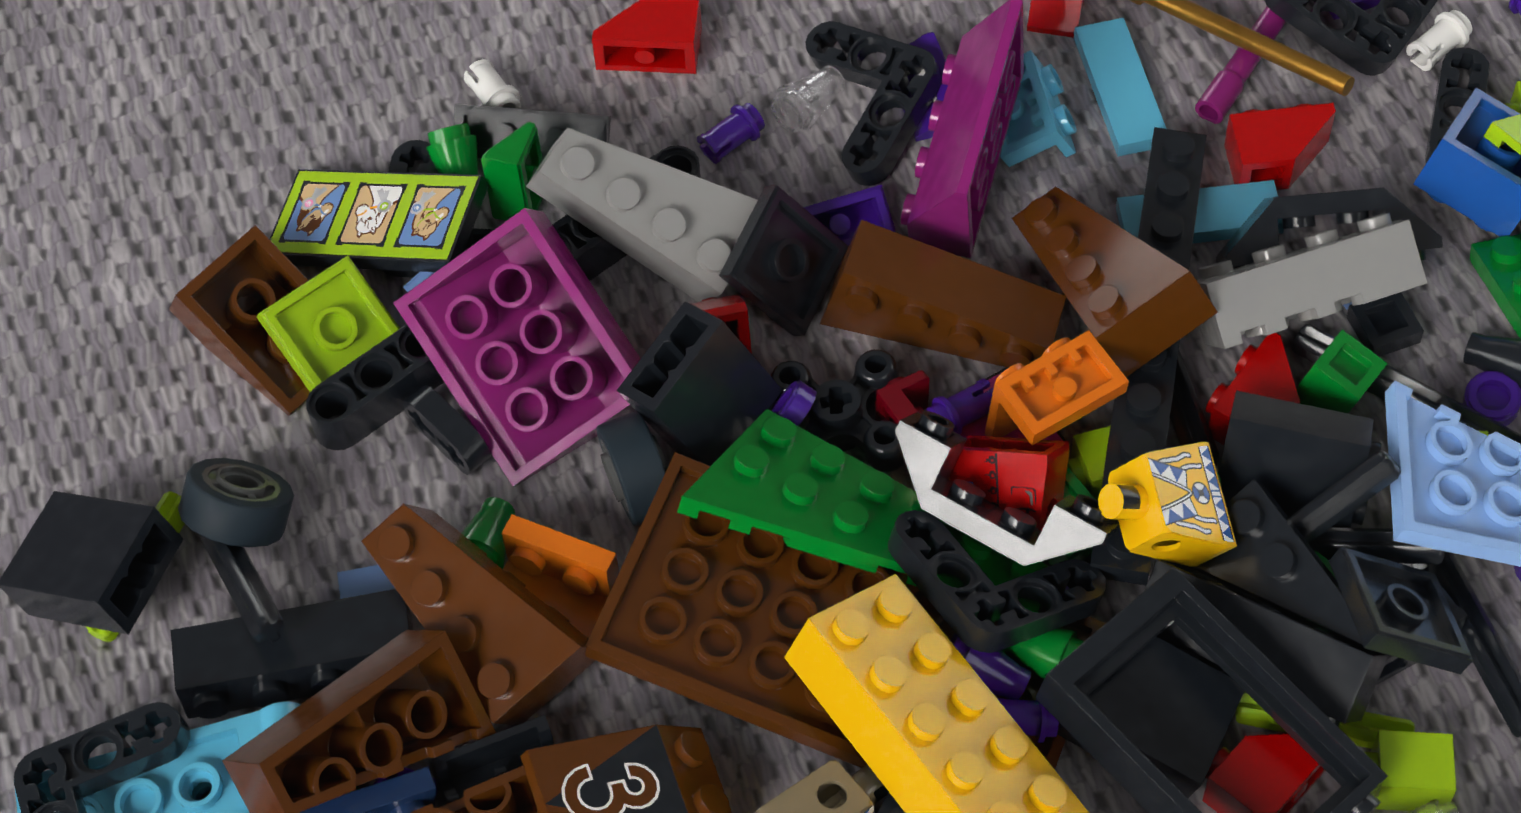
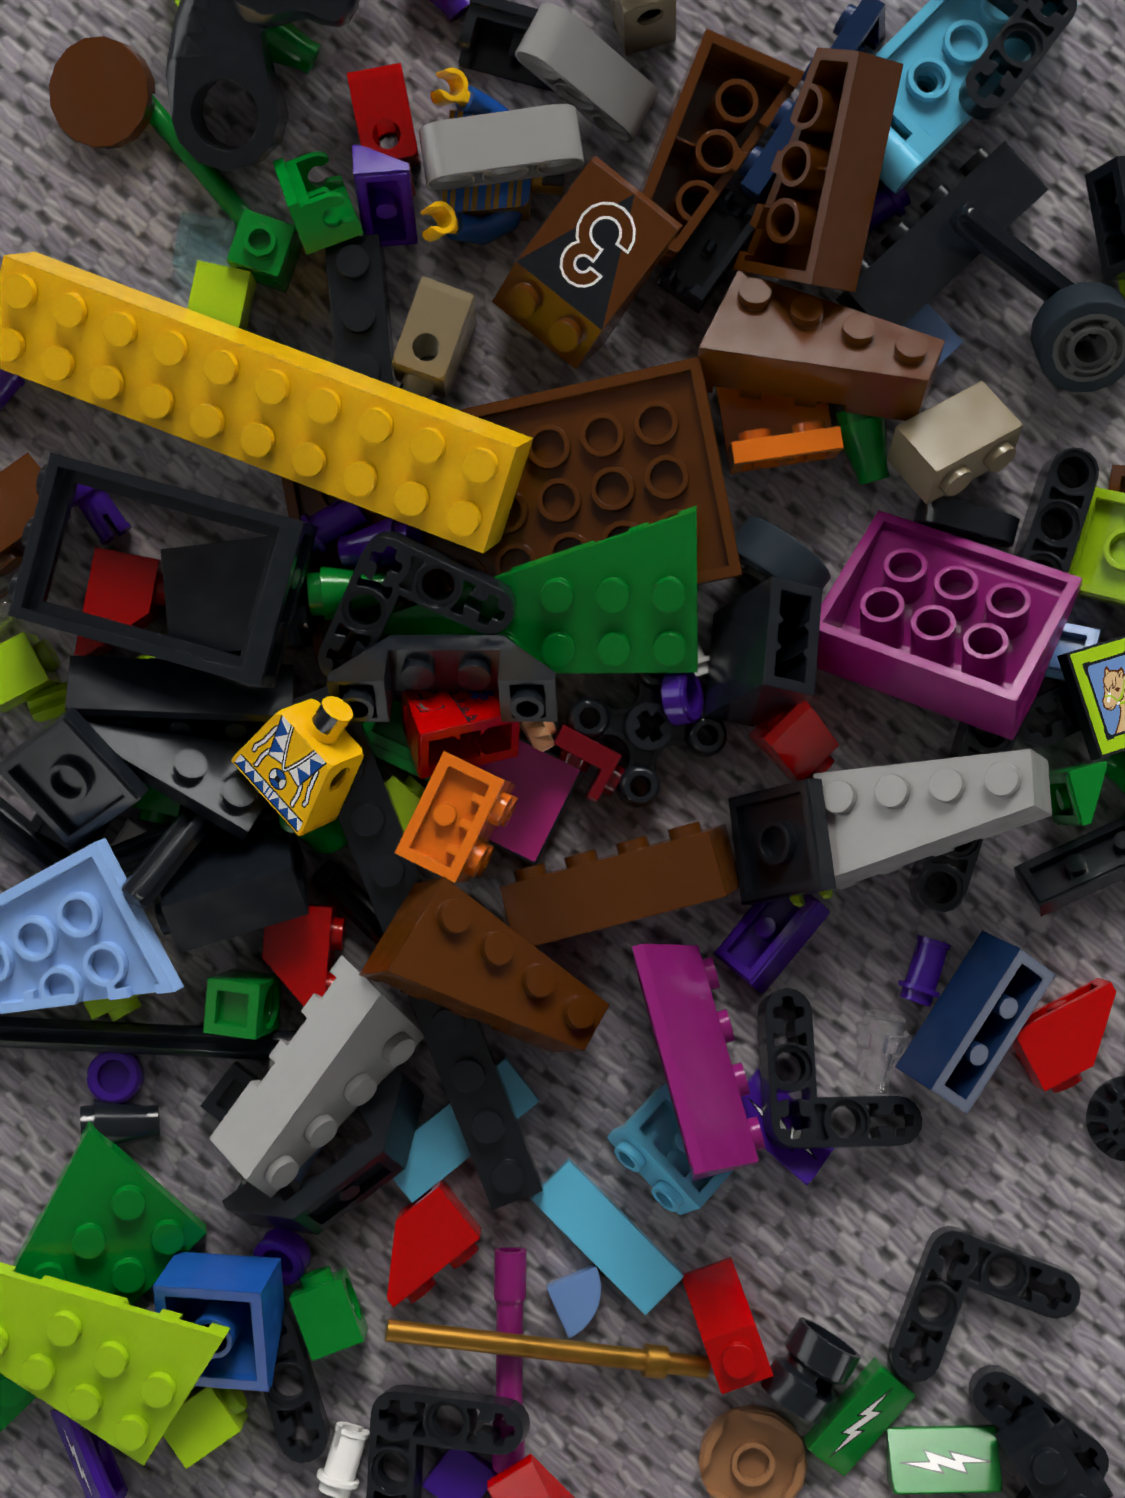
camera: 145 degrees right, 30 degrees up
(423, 473) = (955, 442): none -> dark tan brick
(718, 70) = (975, 1020): none -> dark blue brick
(965, 405) = (544, 785): dark purple pin -> none
(1172, 57) = (576, 1298): none -> medium blue tile
(1393, 136) = (328, 1312): none -> green brick
(1410, 195) = (290, 1248): none -> dark purple tile

